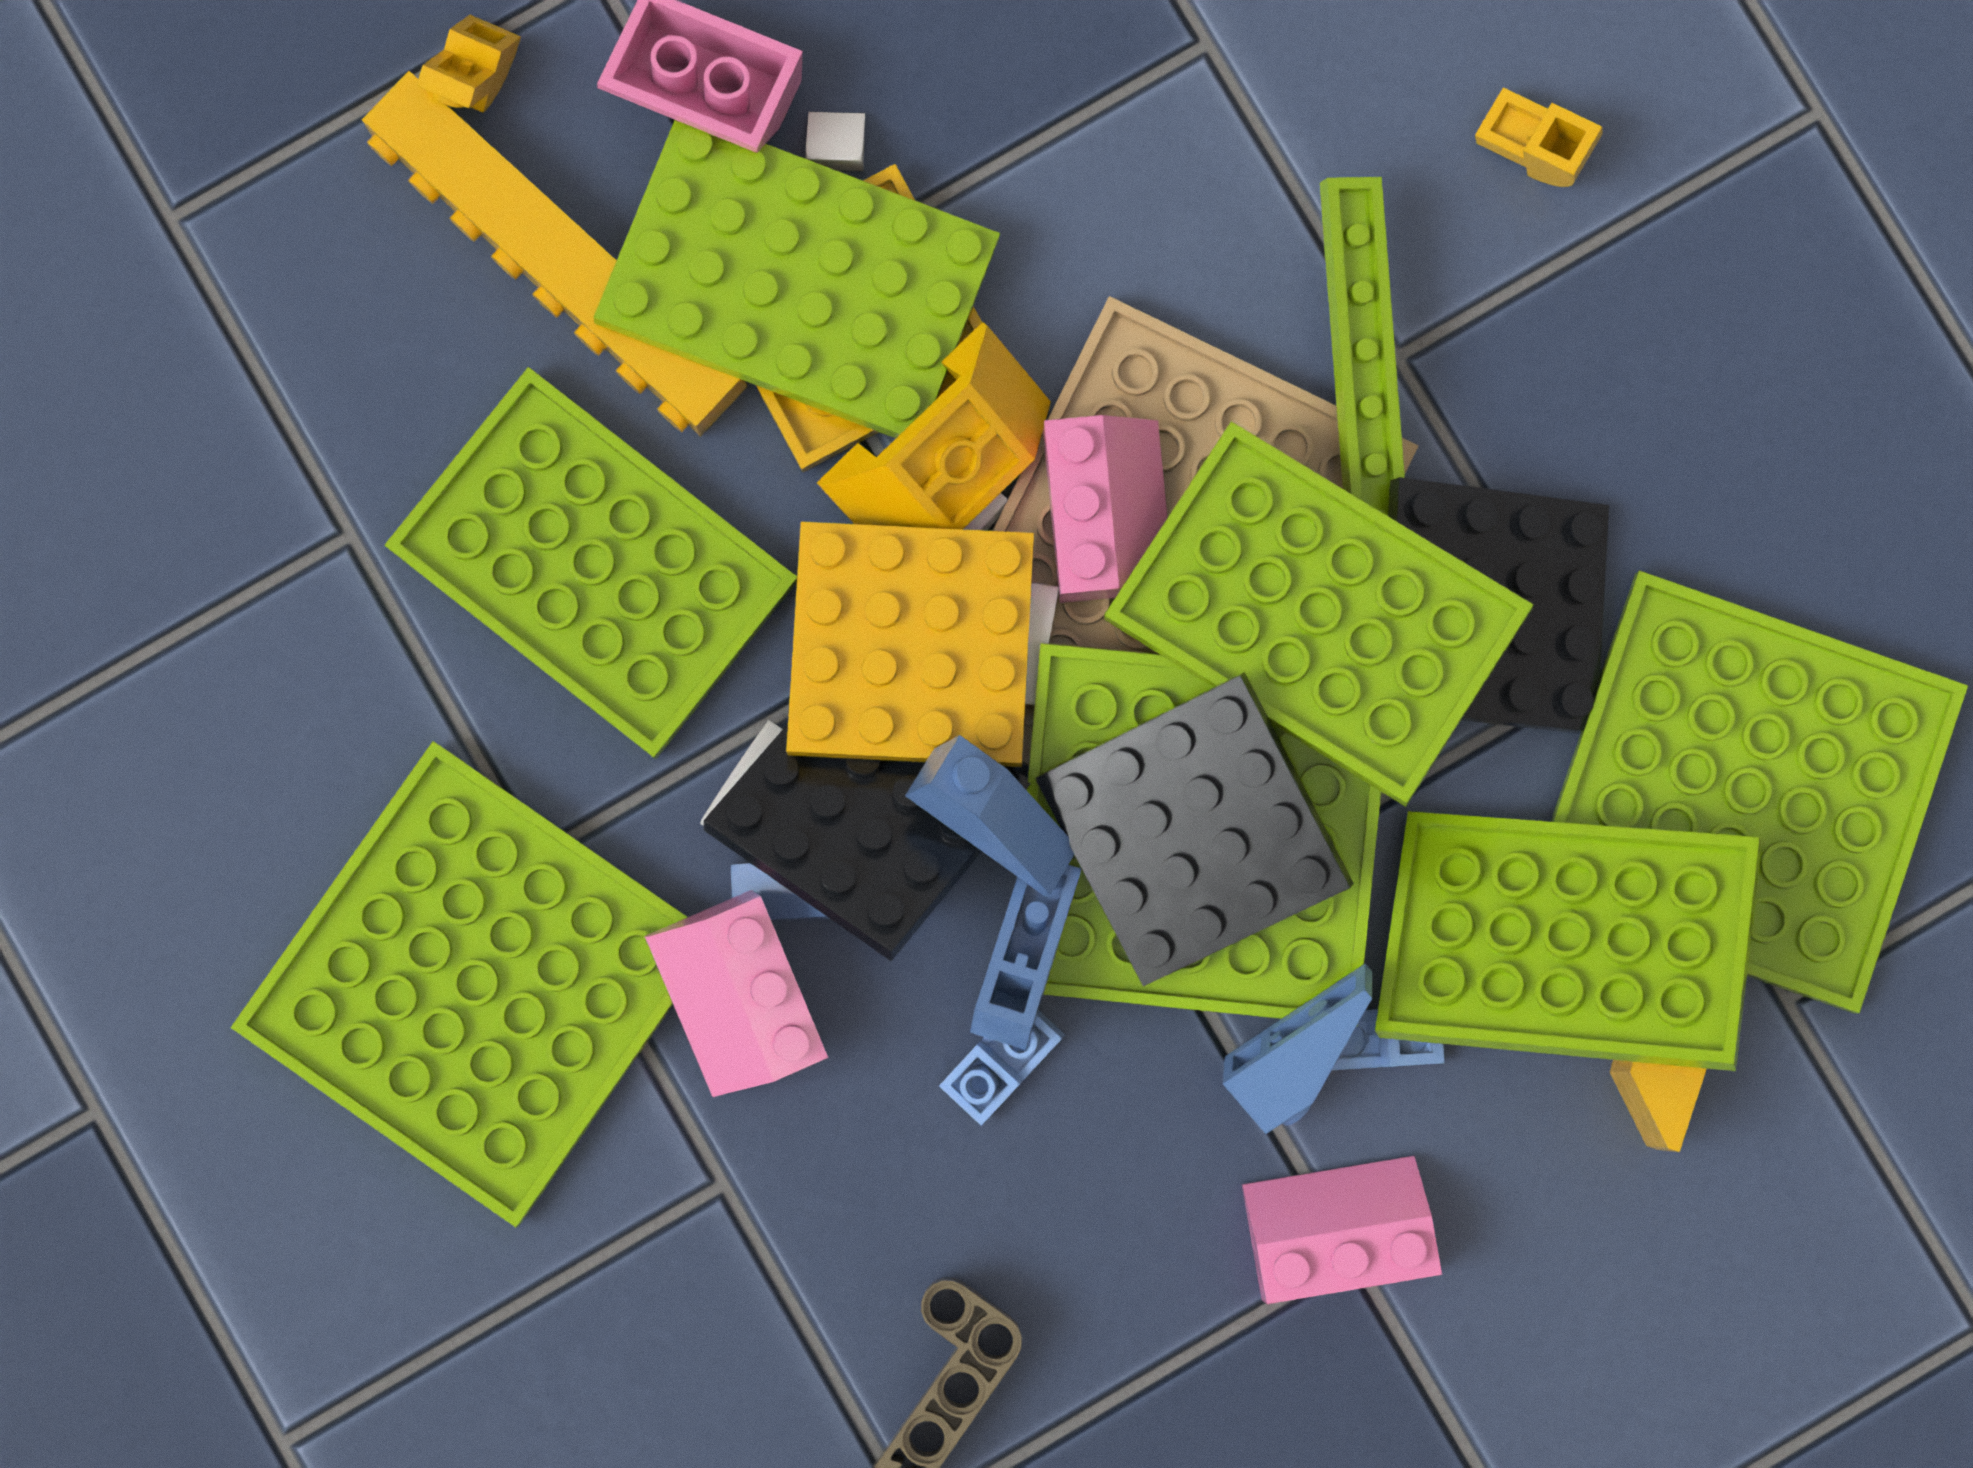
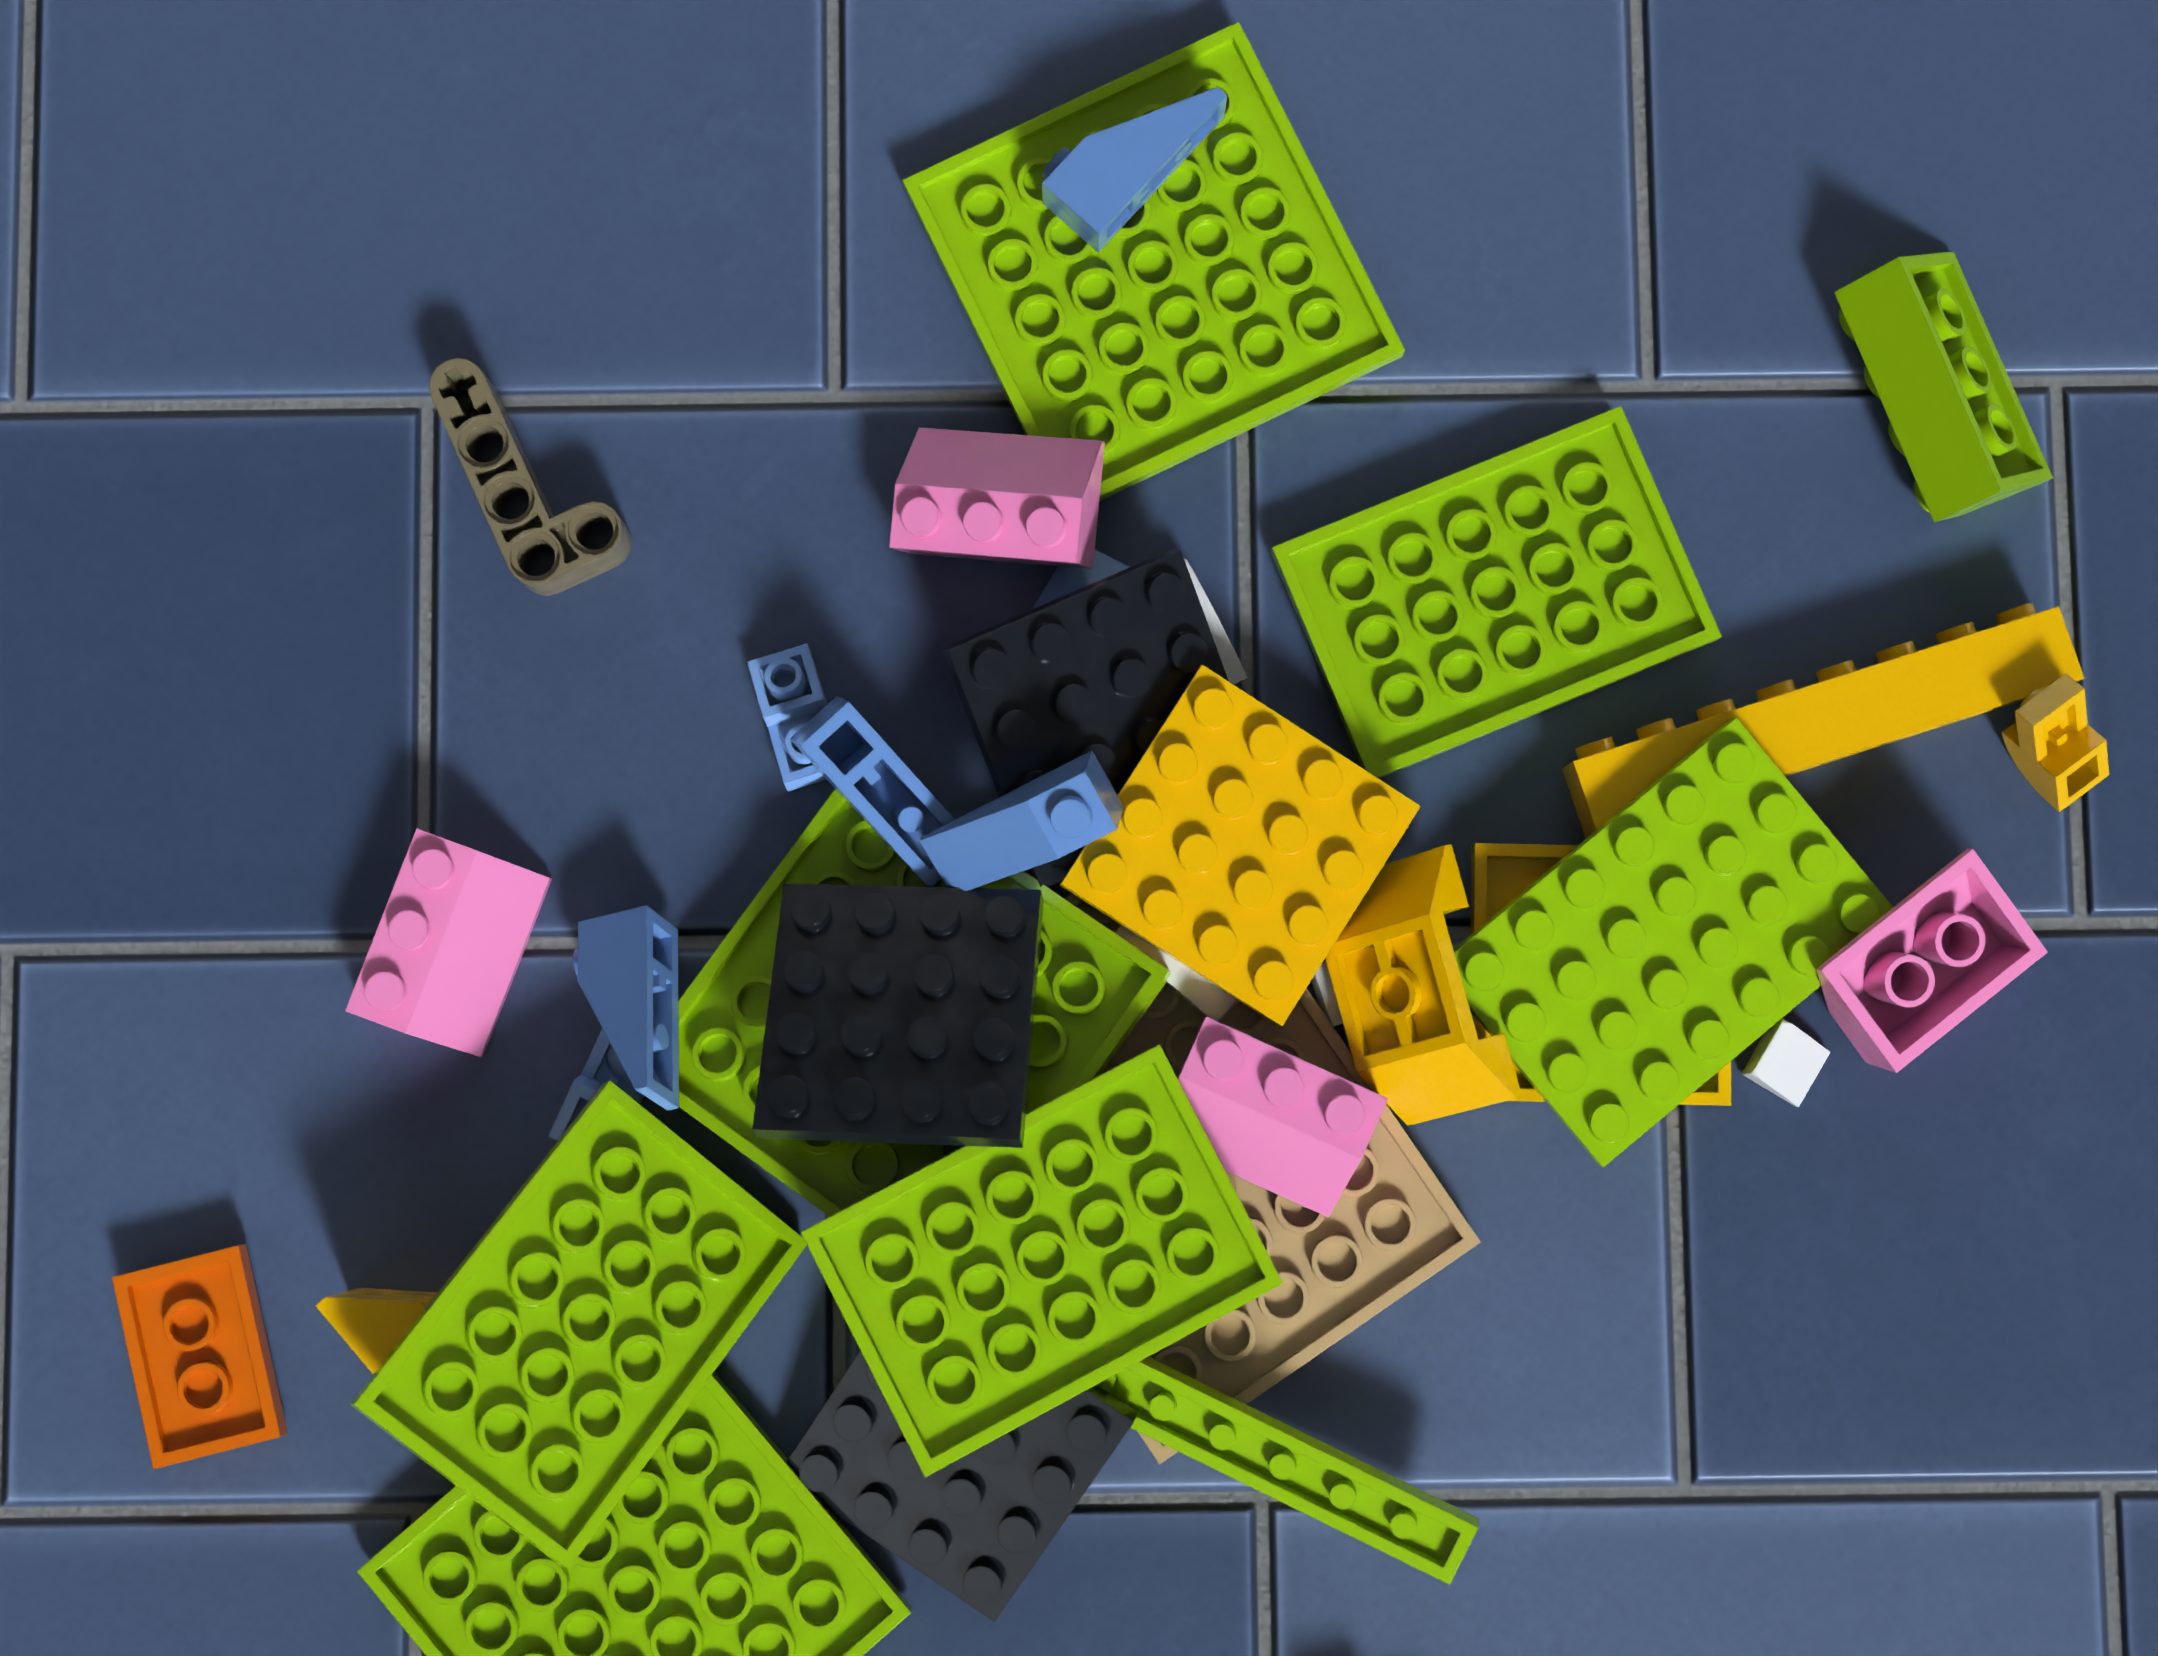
camera: 120 degrees right, 0 degrees up
(226, 302) = (1941, 384): none -> lime slope
(414, 1050) = (1122, 166): none -> medium blue slope
(1771, 1237) = (199, 1356): none -> orange plate

